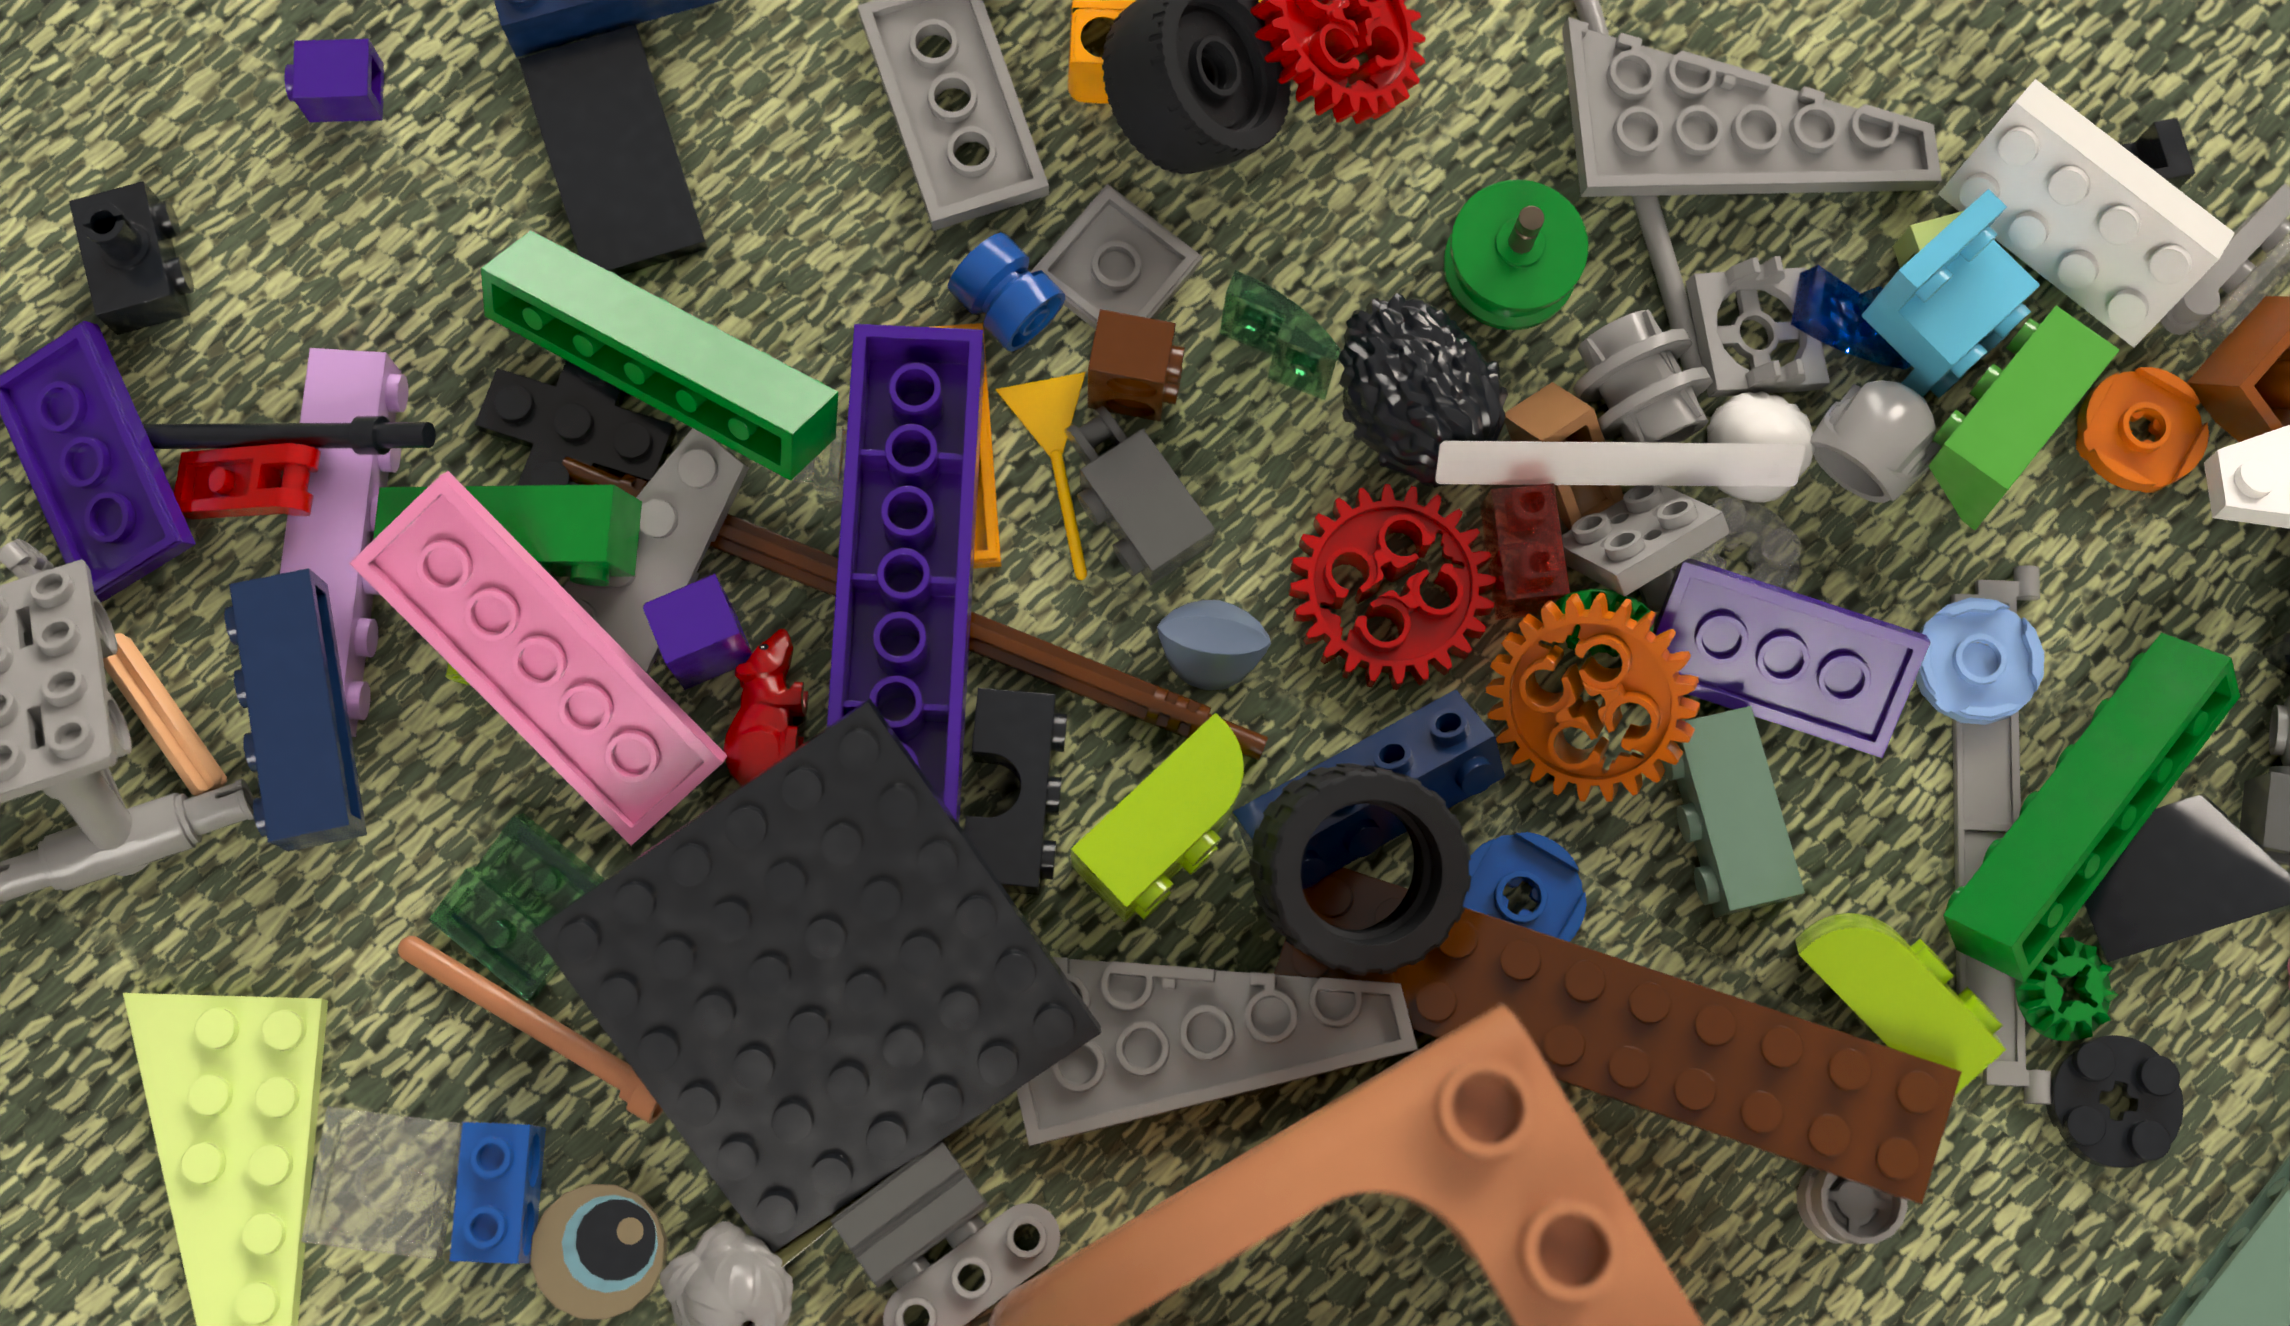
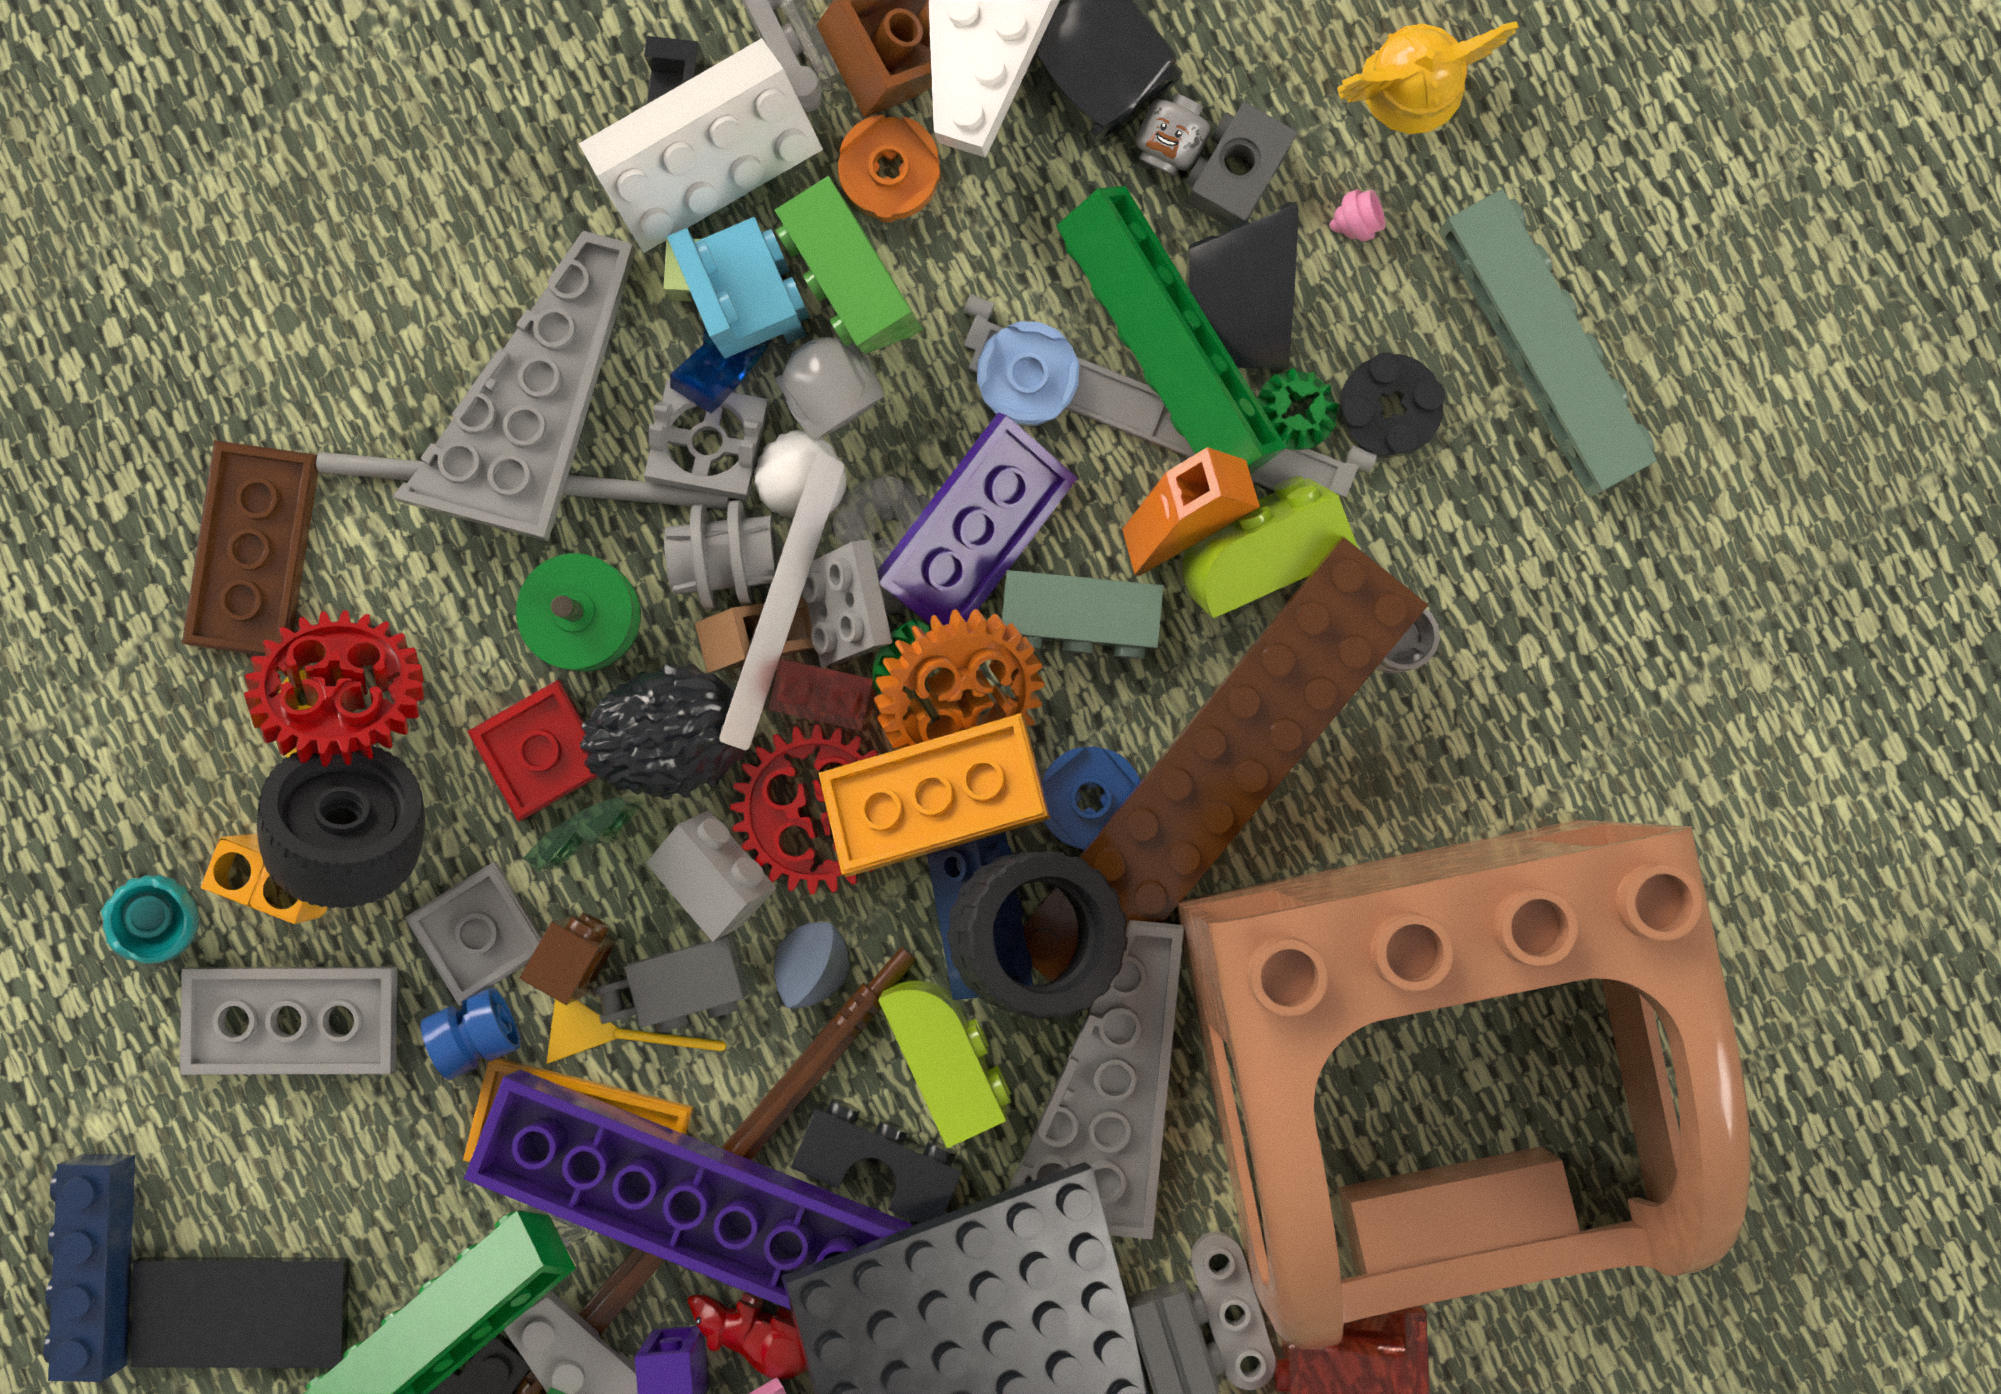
camera: 65 degrees left, 10 degrees up
(1278, 491) = (710, 875): none -> light grey brick
(1342, 261) = (535, 750): none -> red plate
(1468, 703) = (934, 795): none -> light orange tile
(1915, 885) = (1188, 507): none -> orange slope

